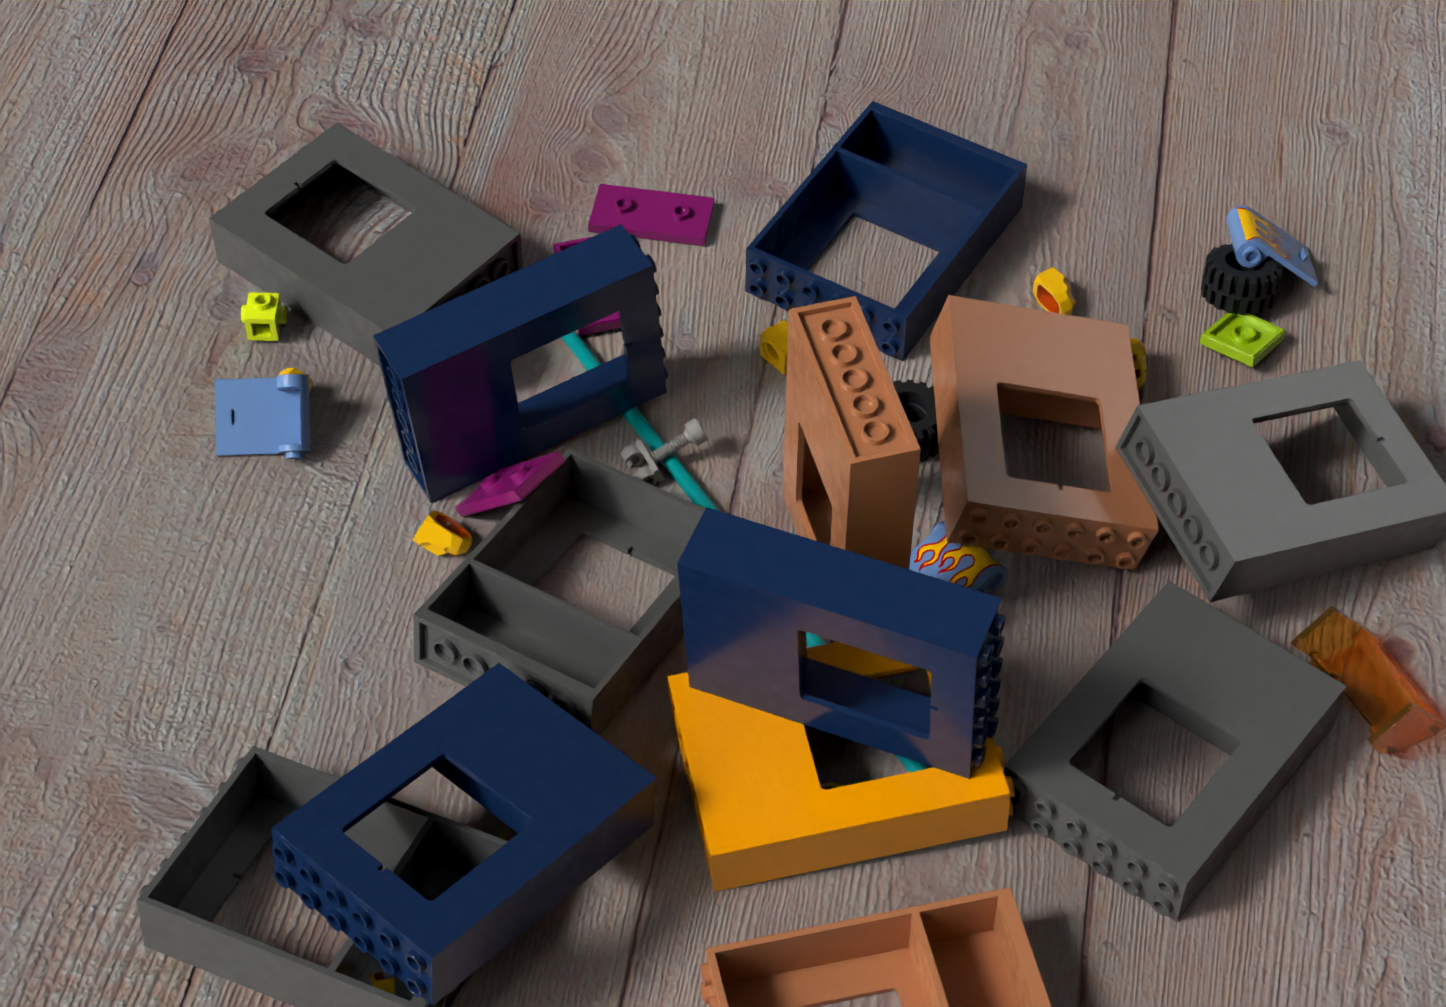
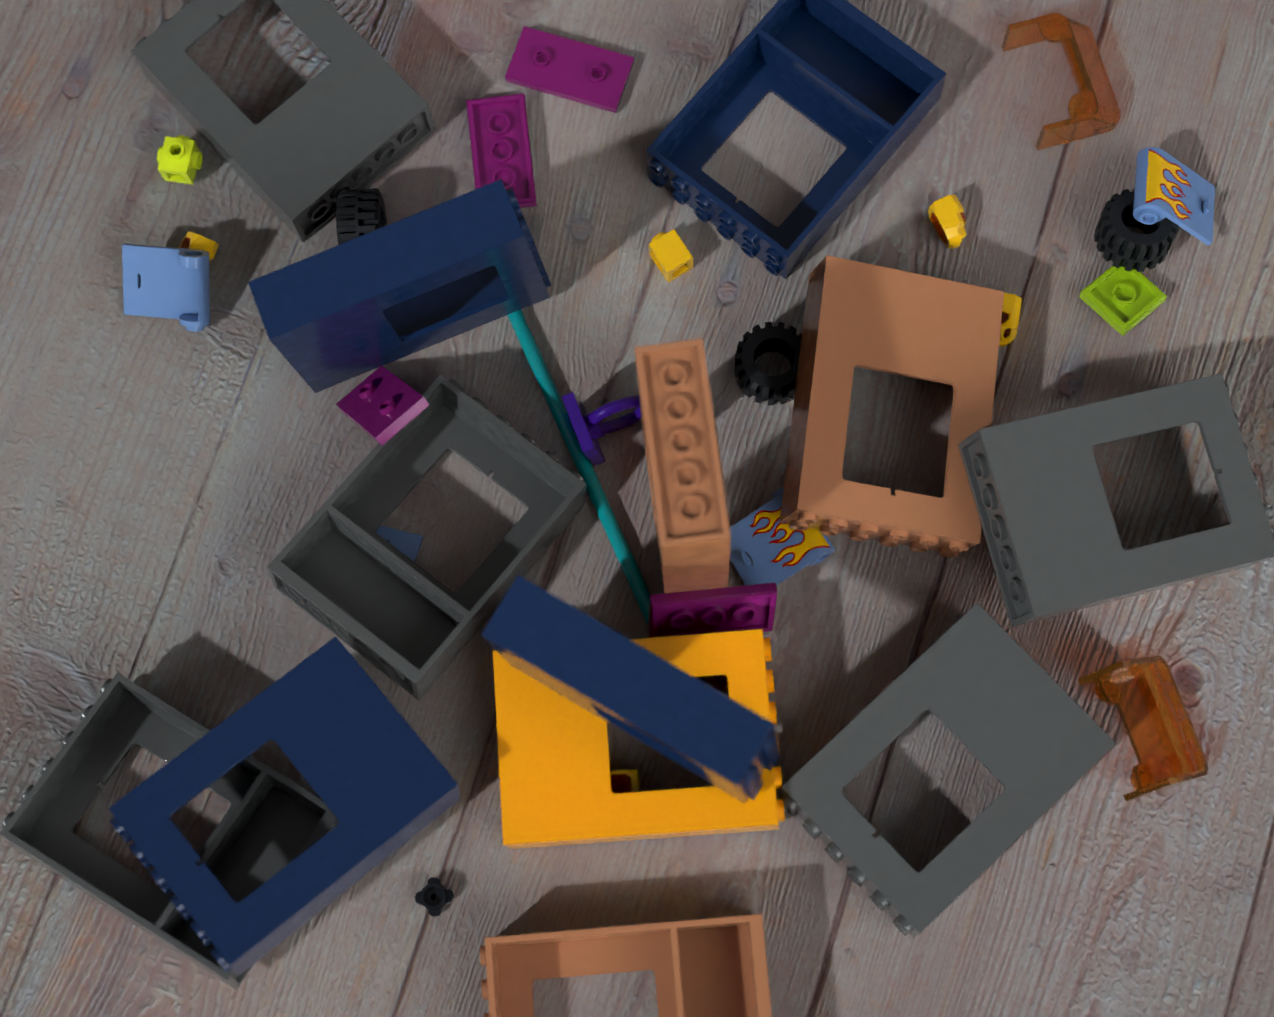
camera: 15 degrees right, 25 degrees up
(443, 535) = (320, 438): yellow rock -> none
(635, 454) = (565, 357): light grey bar -> none
(635, 935) = (443, 896): none -> black plate
(727, 487) = (588, 425): none -> dark purple tile
(1171, 193) = (1095, 106): none -> clear orange windscreen

